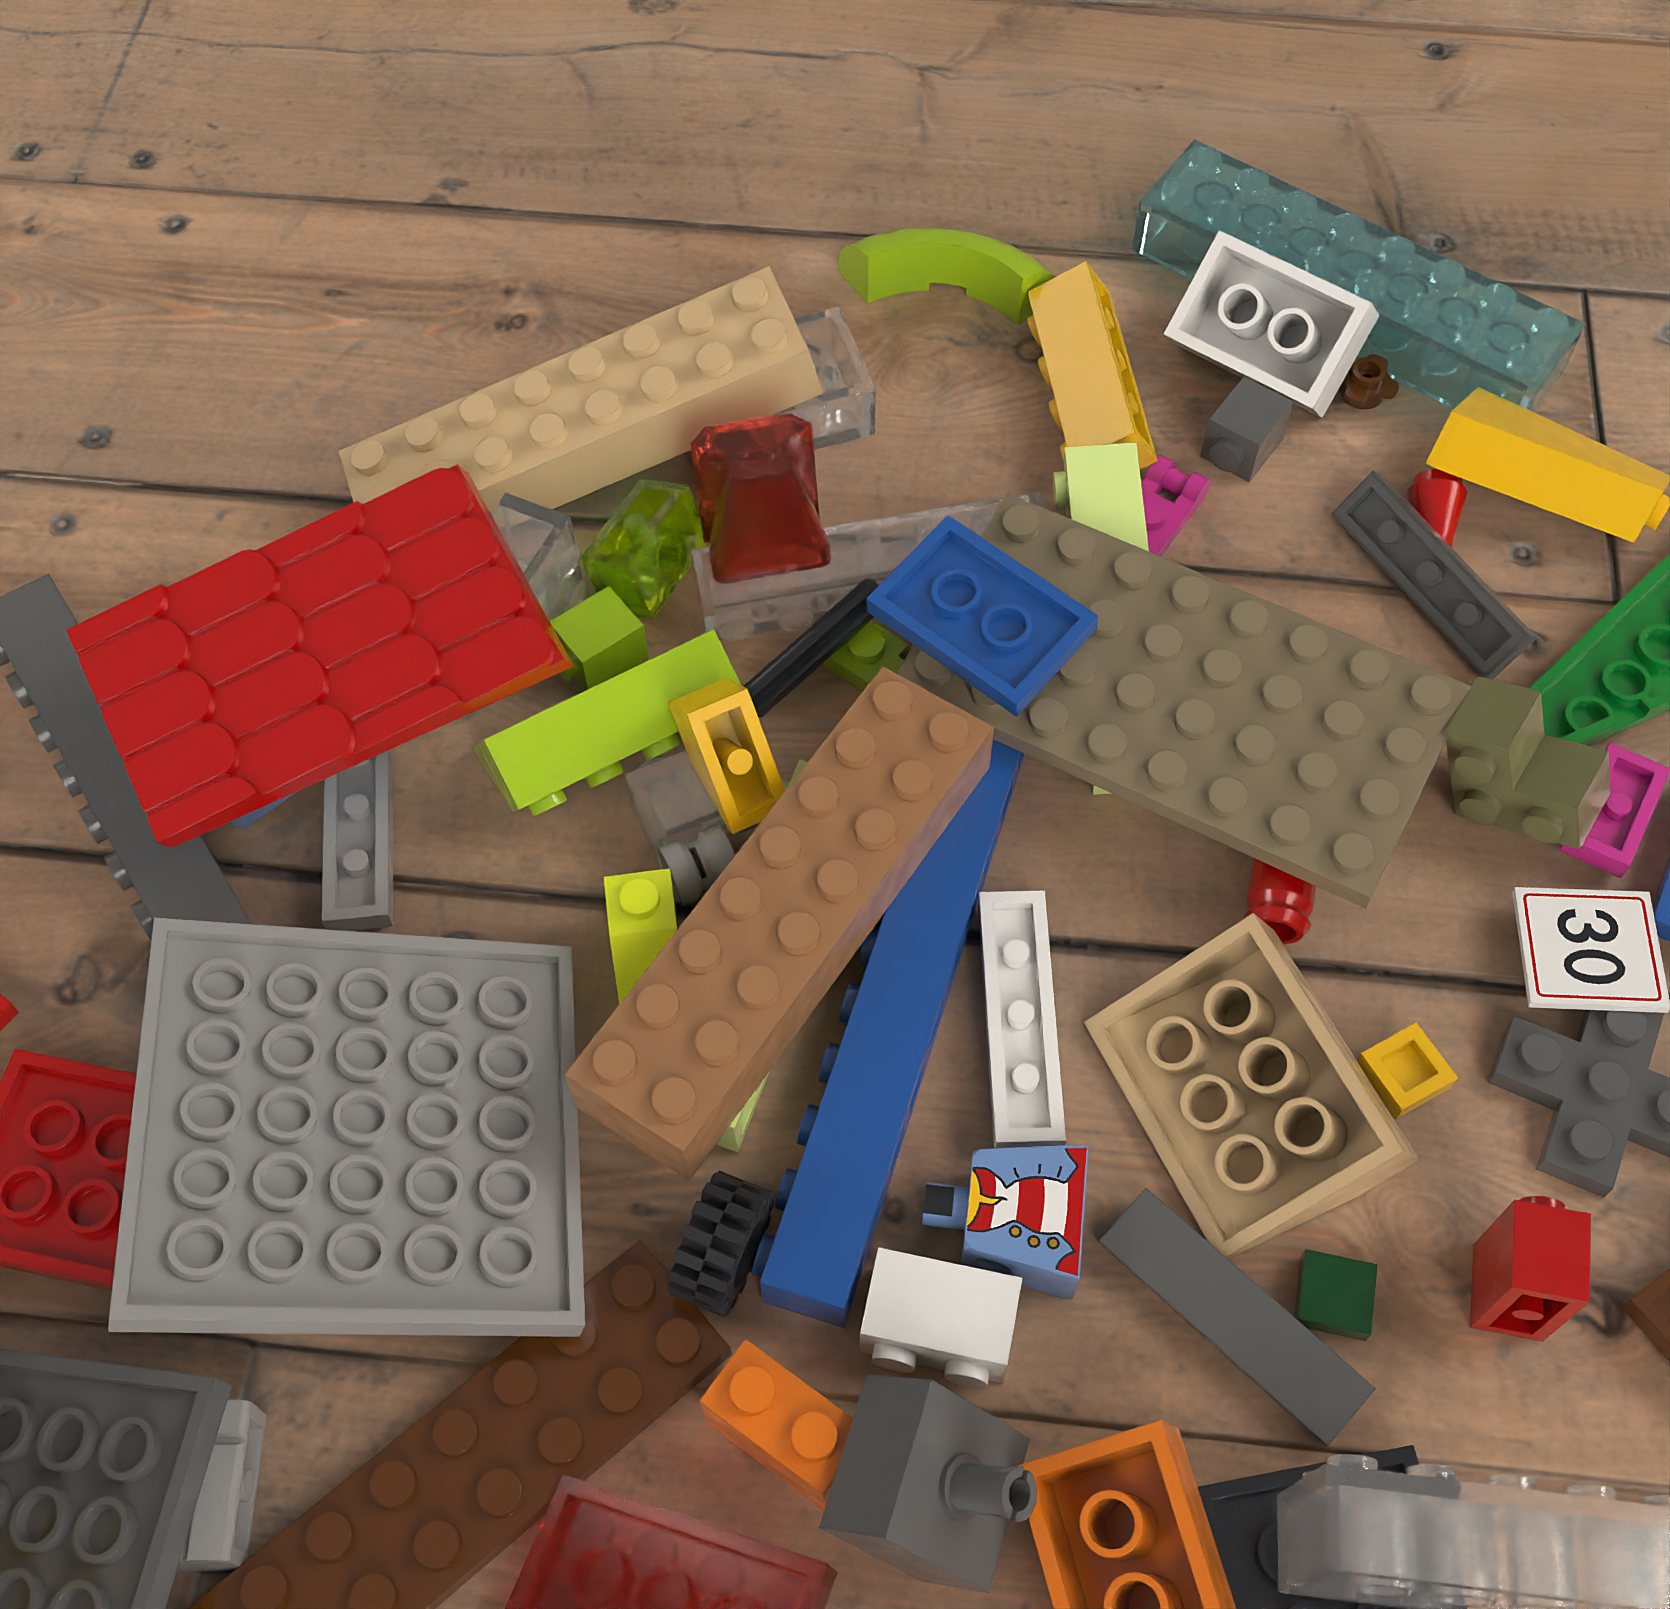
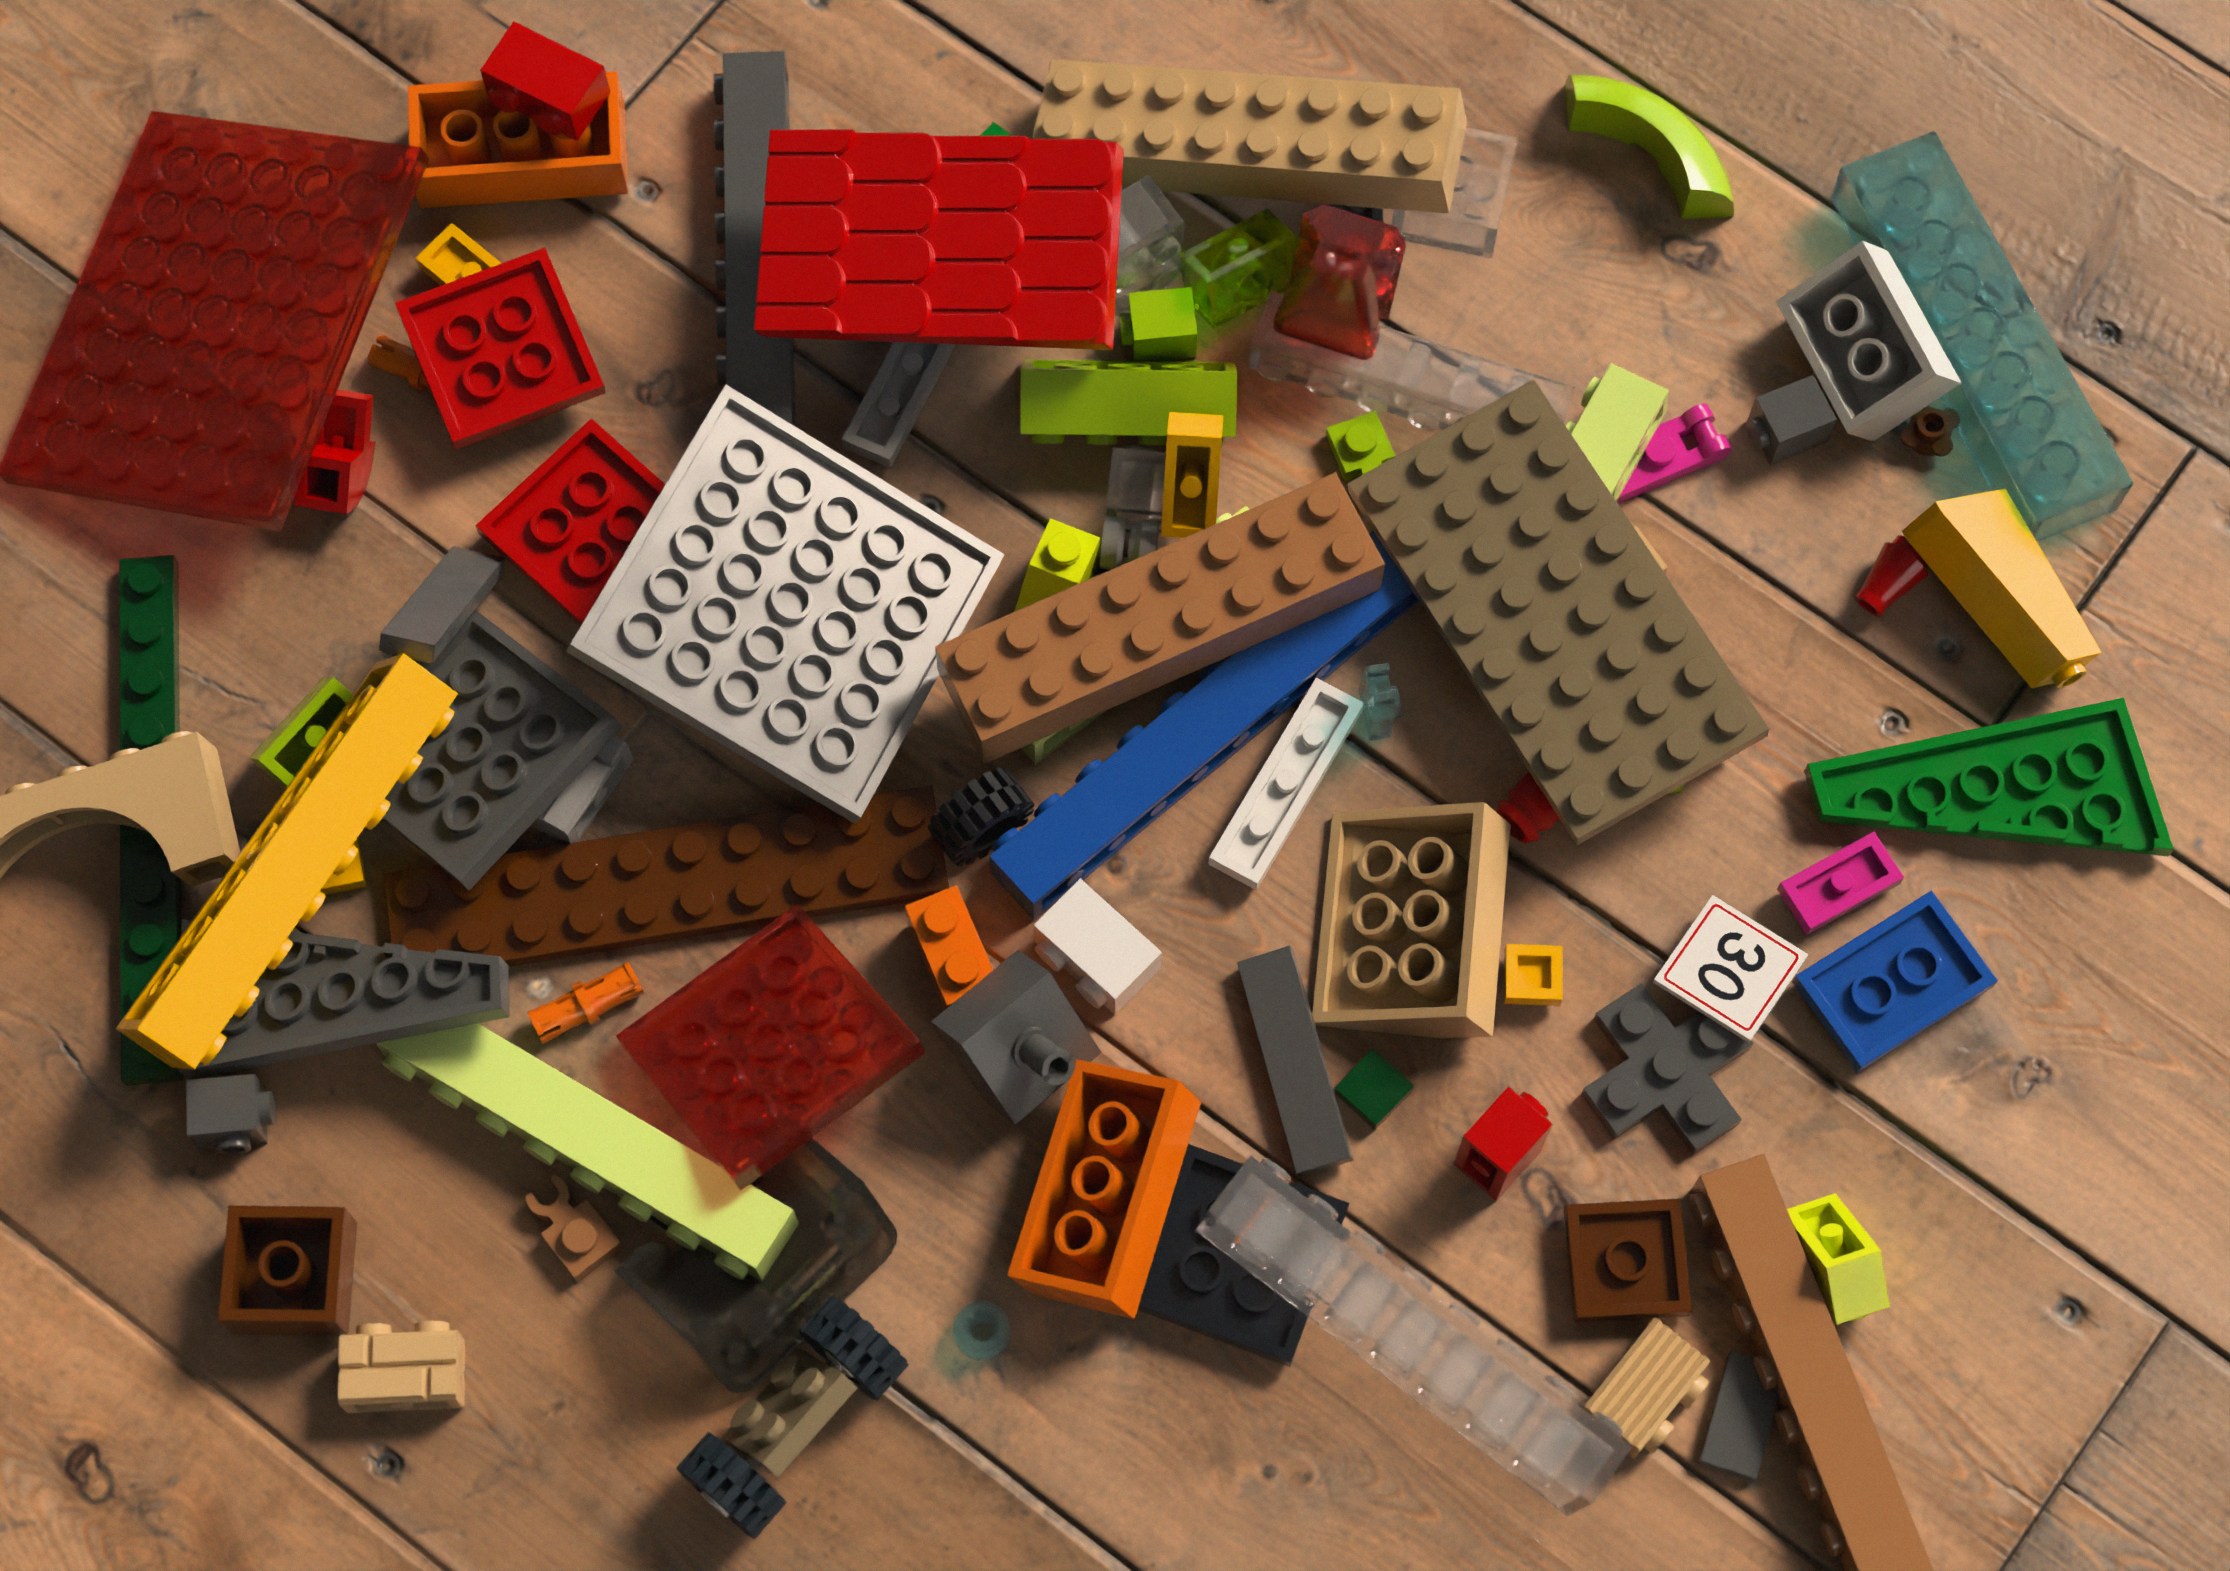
camera: 30 degrees right, 10 degrees up
(811, 649) = (1317, 420): black axle -> none
(982, 614) = (1438, 470): blue plate -> none
(1019, 1214) = (1193, 913): torso -> none
(1061, 877) = (1380, 701): none -> clear light blue plate
(1087, 364) = (1696, 299): yellow brick -> none
(1434, 576) = (1846, 624): dark grey tile -> none
(1518, 776) = (1773, 812): olive brick -> none

